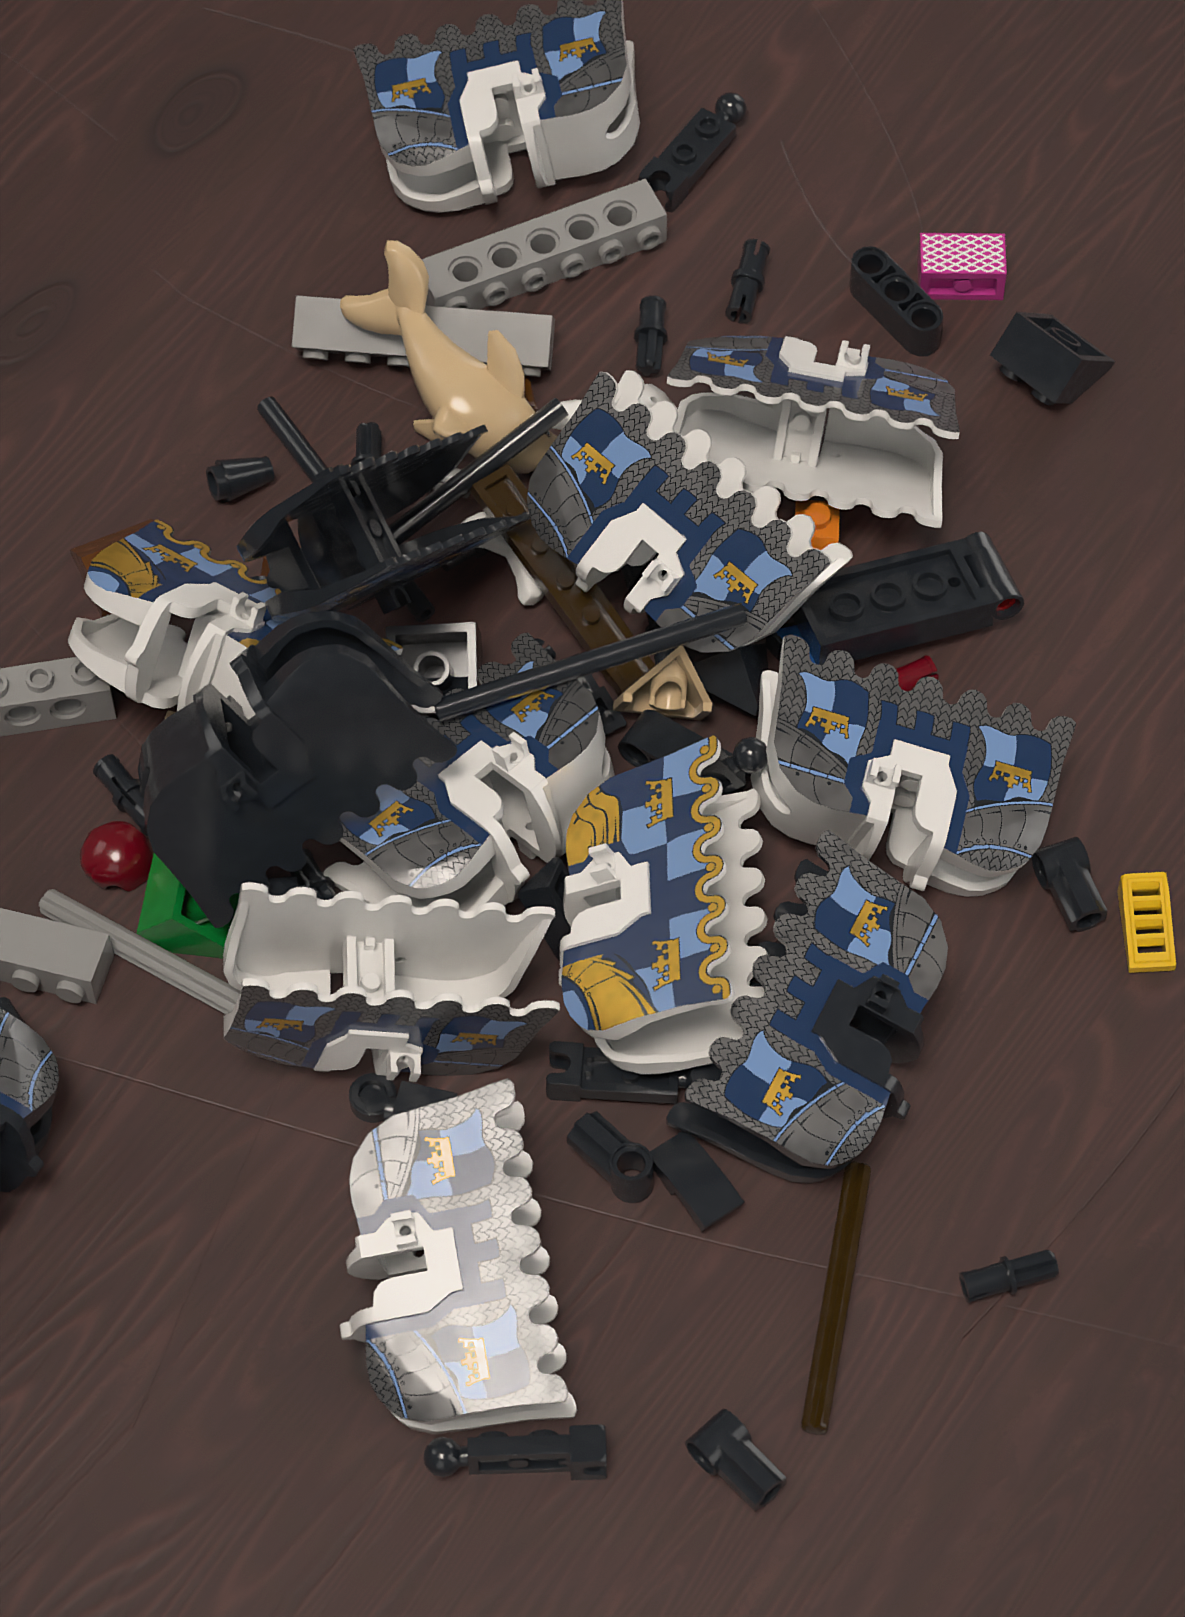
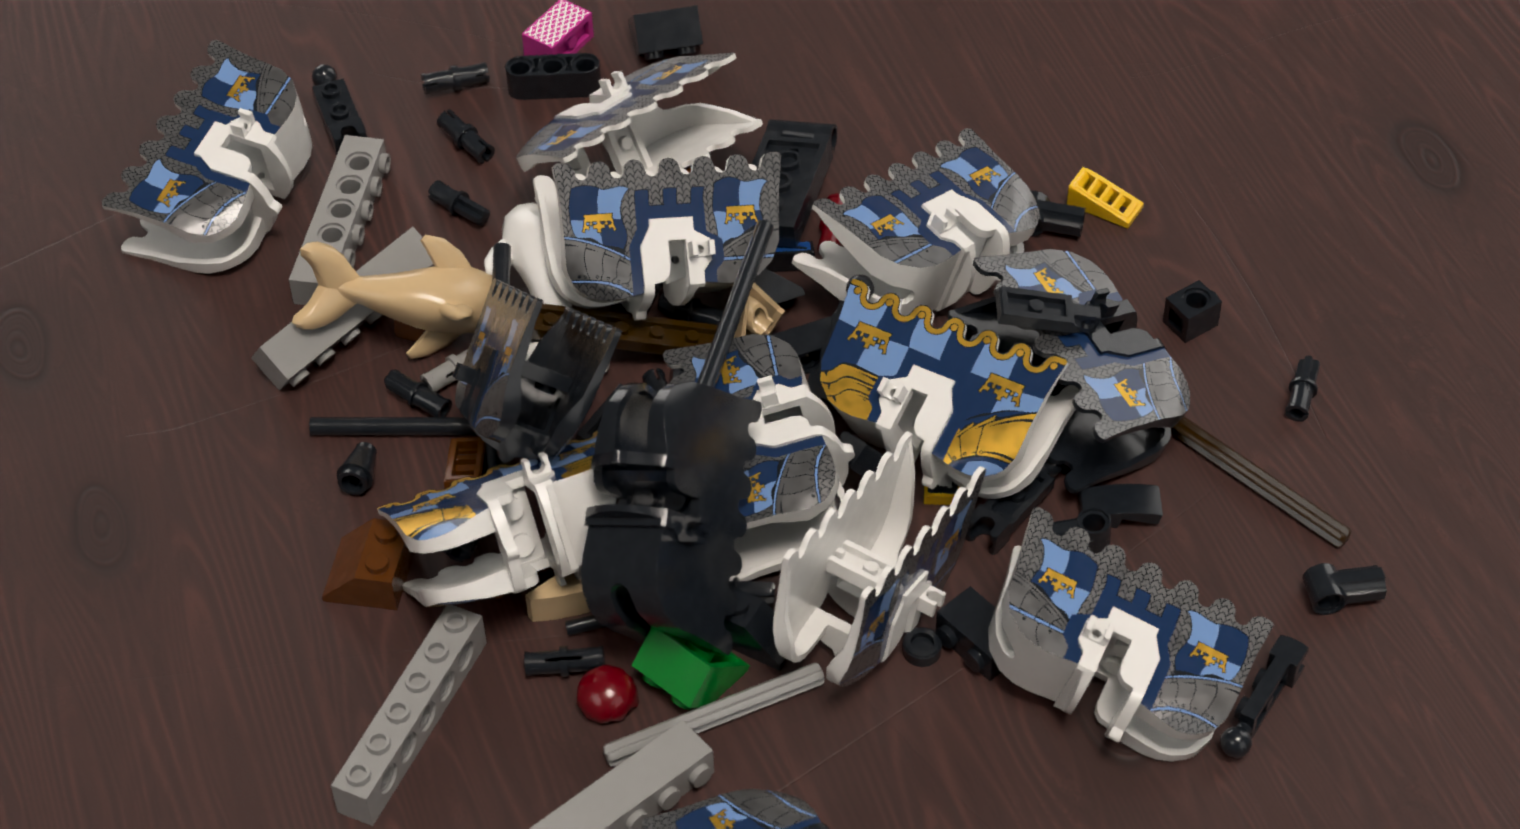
camera: 55 degrees left, 10 degrees down
(800, 938) = (1045, 311): none -> black hinge
(823, 218) = (455, 78): none -> black pin
(1028, 1084) = (1192, 311): none -> black brick

